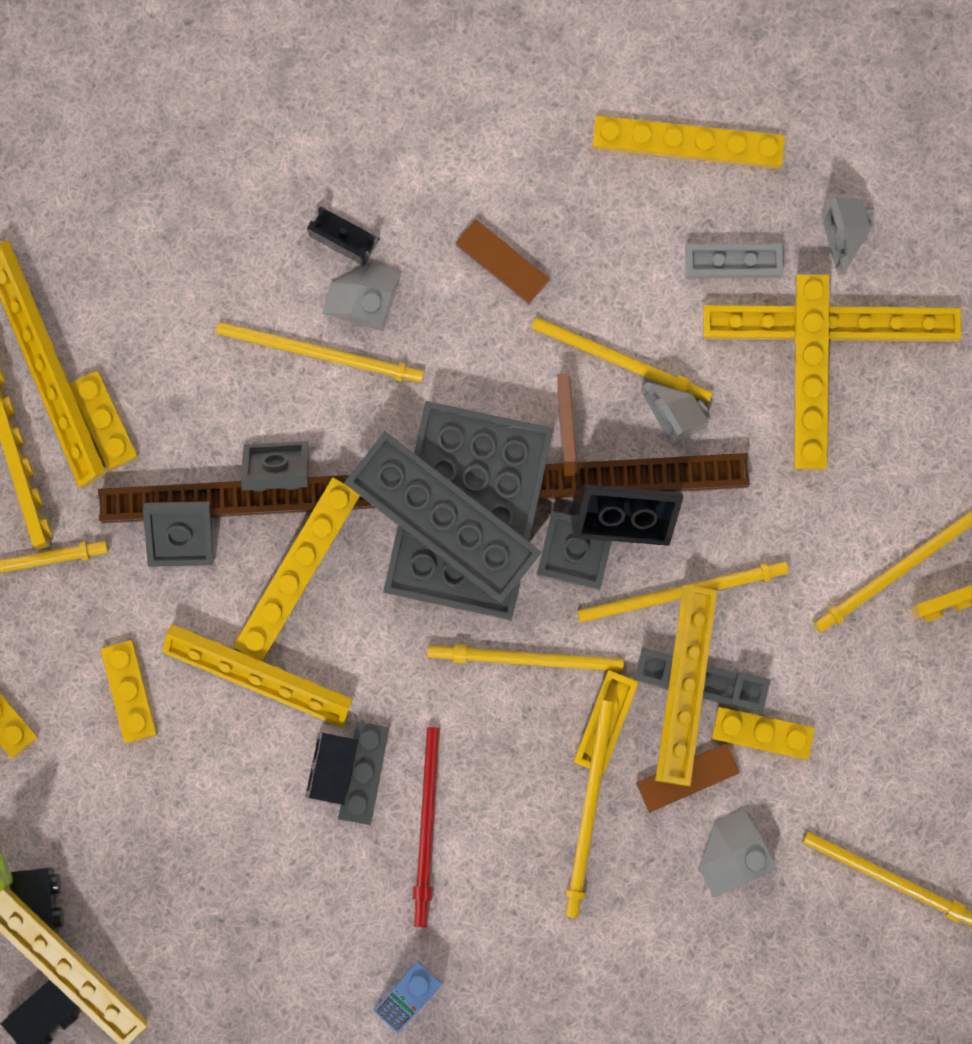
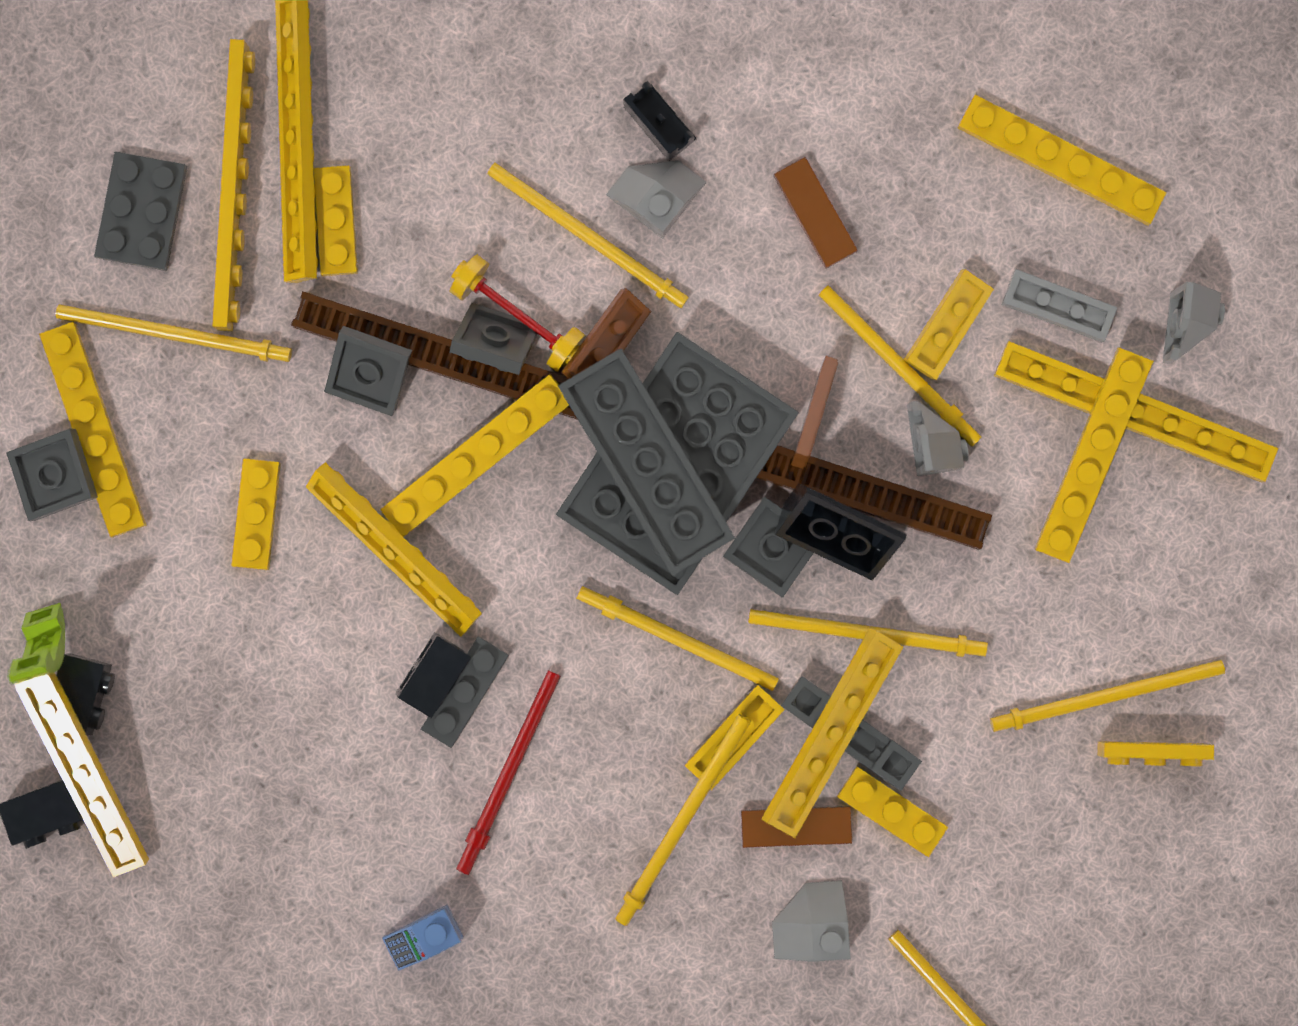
camera: 20 degrees right, 5 degrees up
(234, 424) = (469, 278): none -> yellow axle
(371, 421) = (610, 333): none -> dark orange tile
(649, 311) = (948, 324): none -> yellow plate

